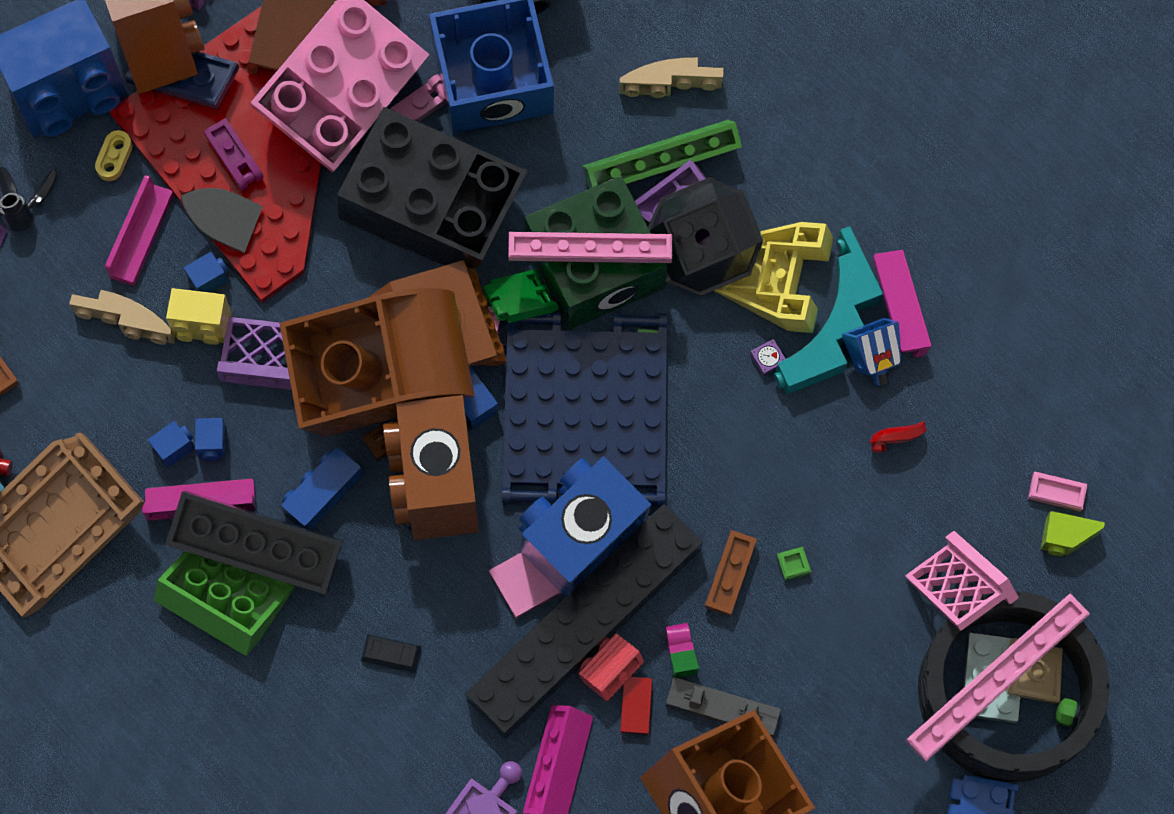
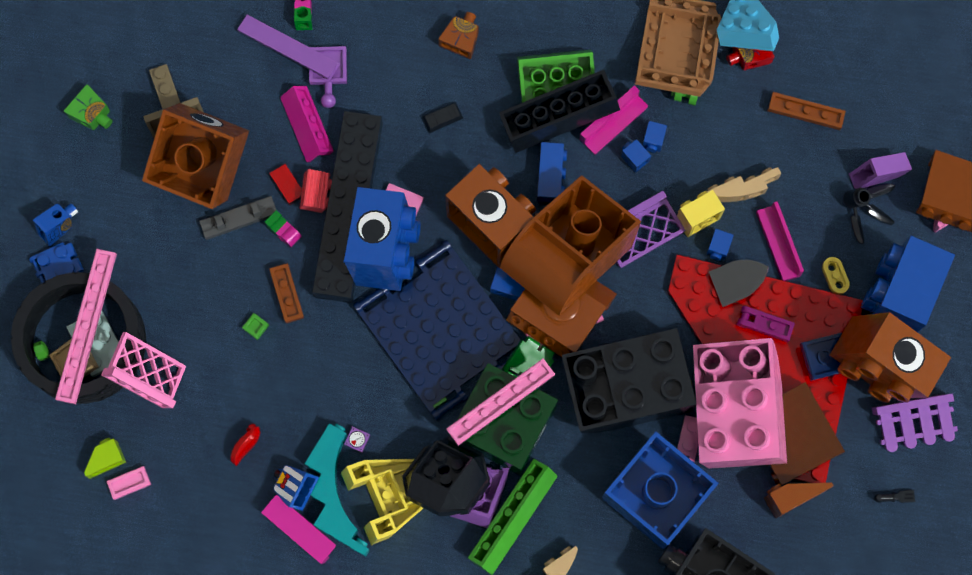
camera: 145 degrees right, 5 degrees up
(288, 734) = (460, 35): none -> dark orange torso

